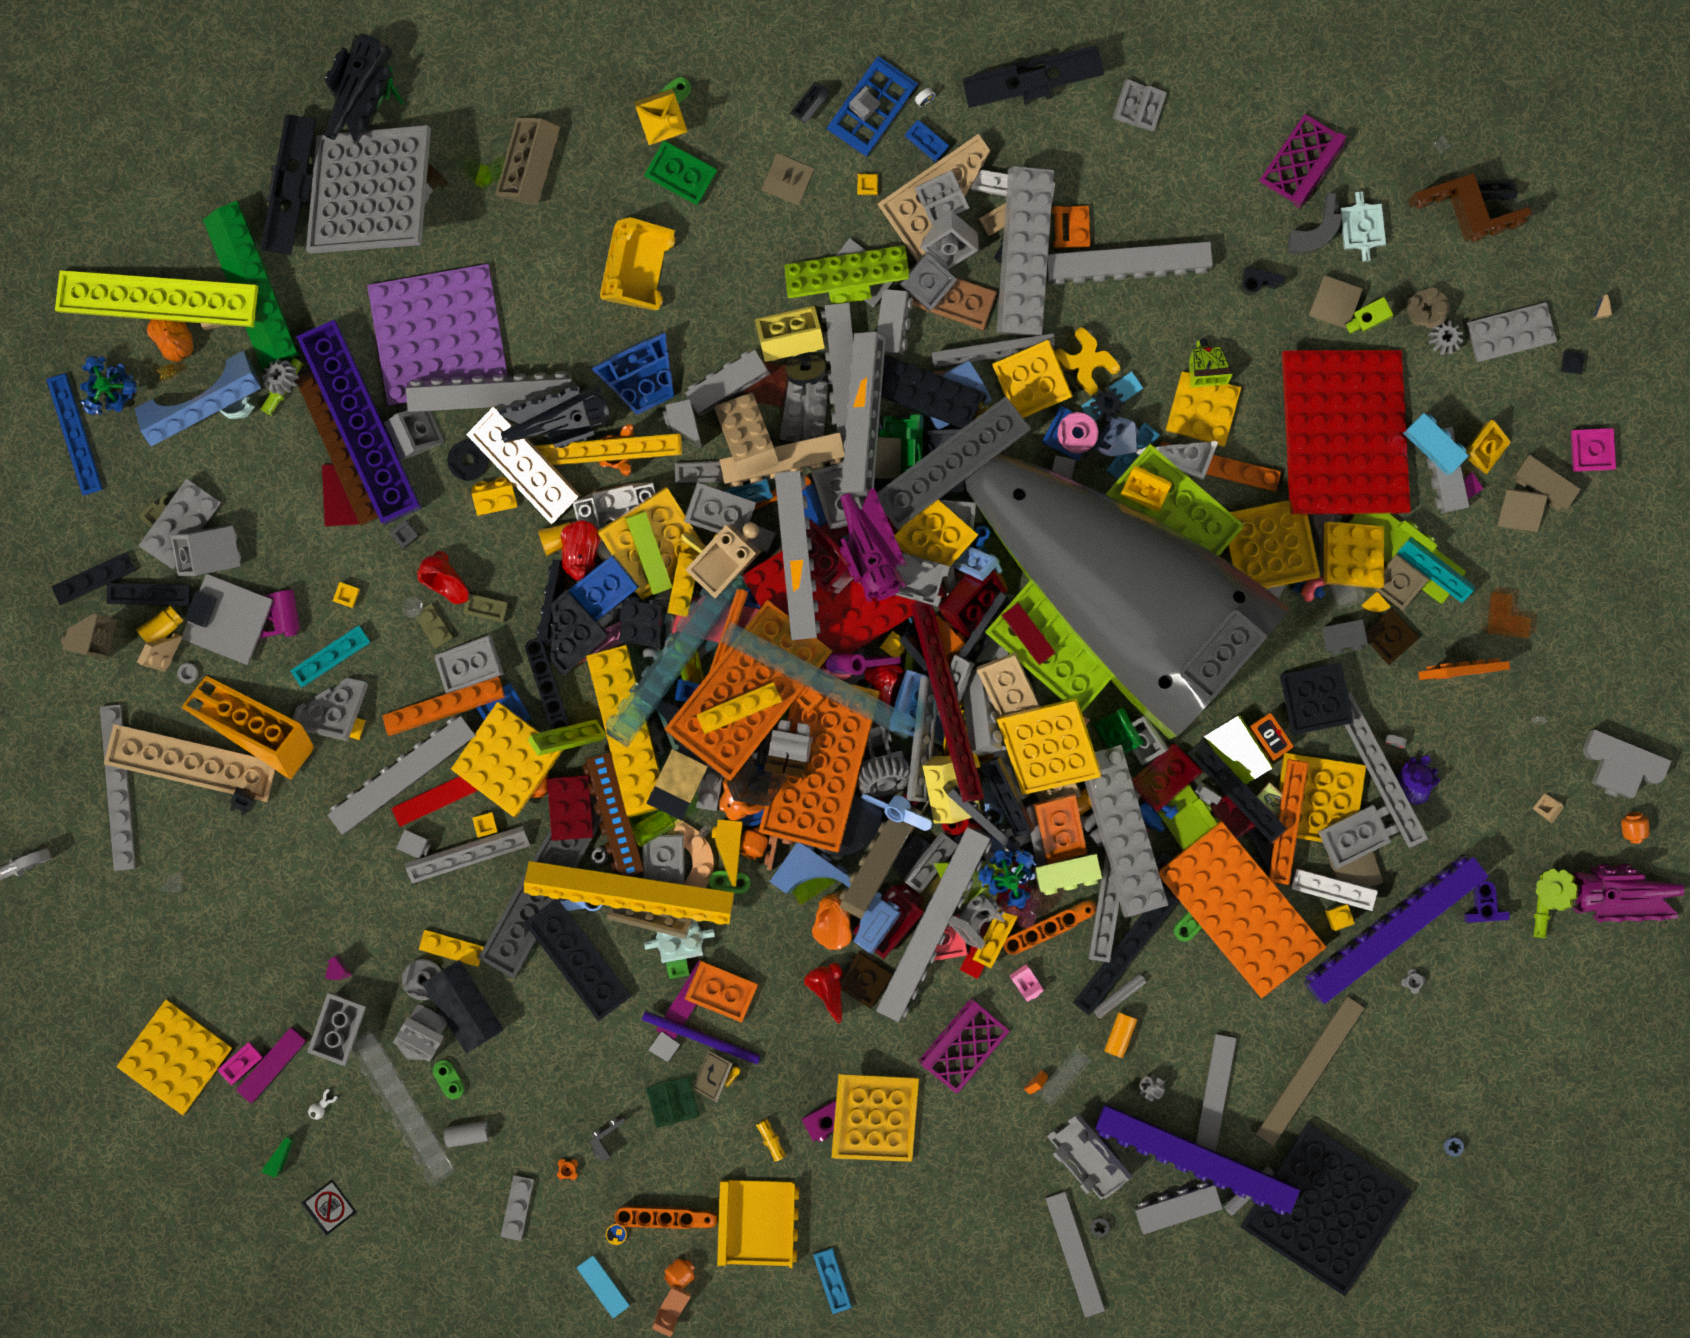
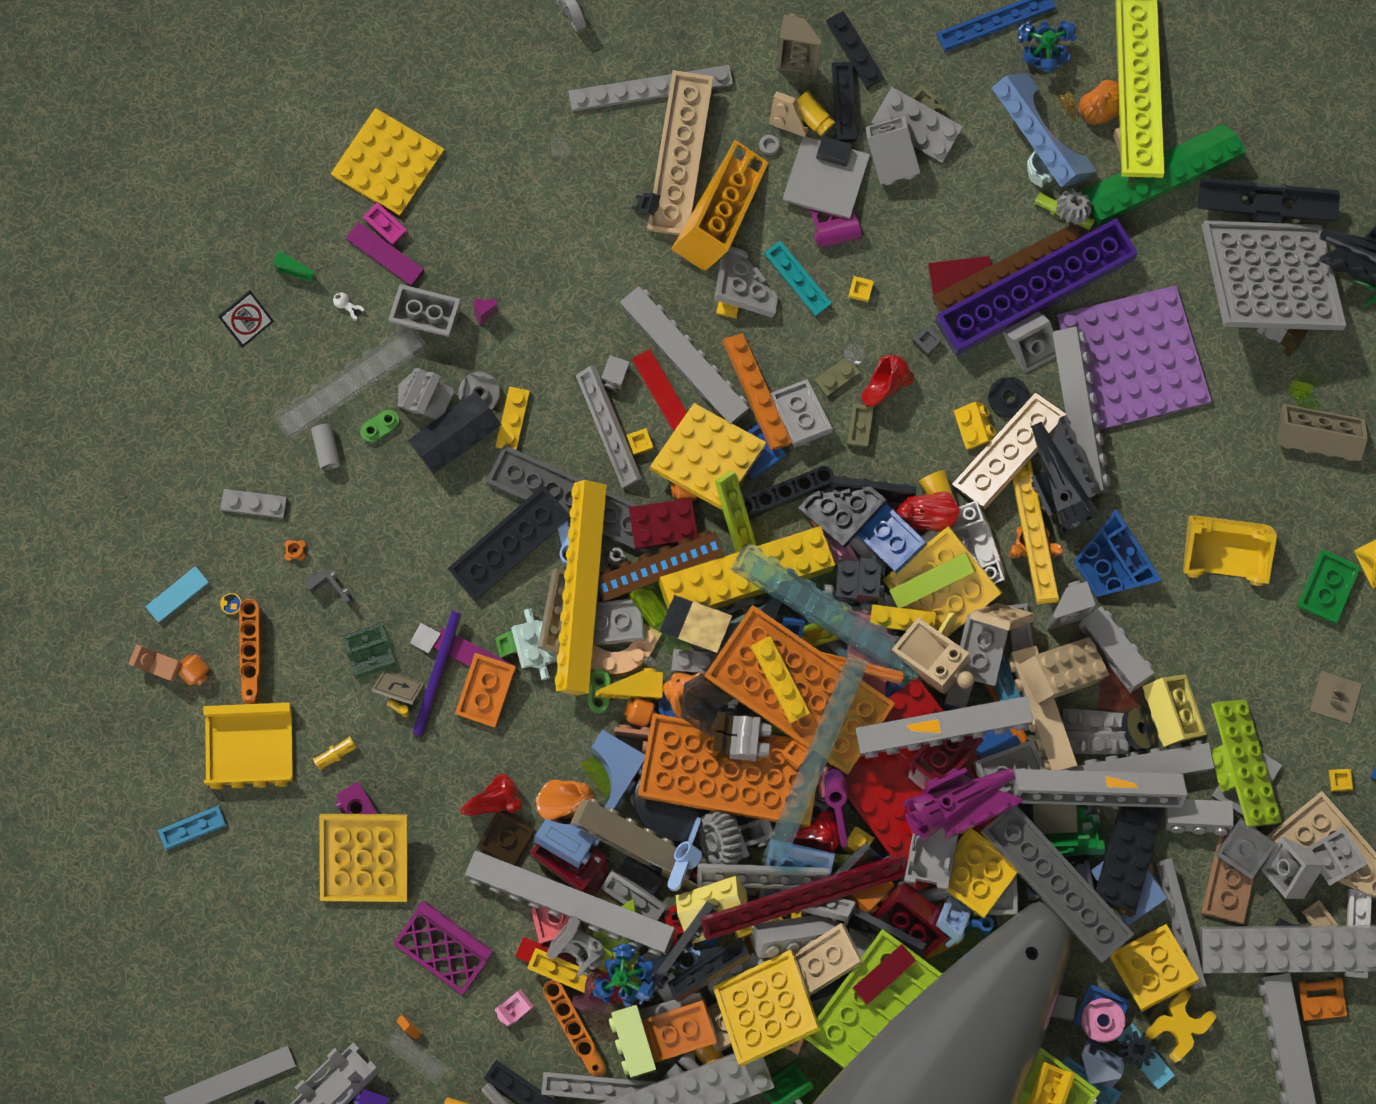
camera: 85 degrees right, 10 degrees down
(690, 488) = (1002, 616): none -> tan tile

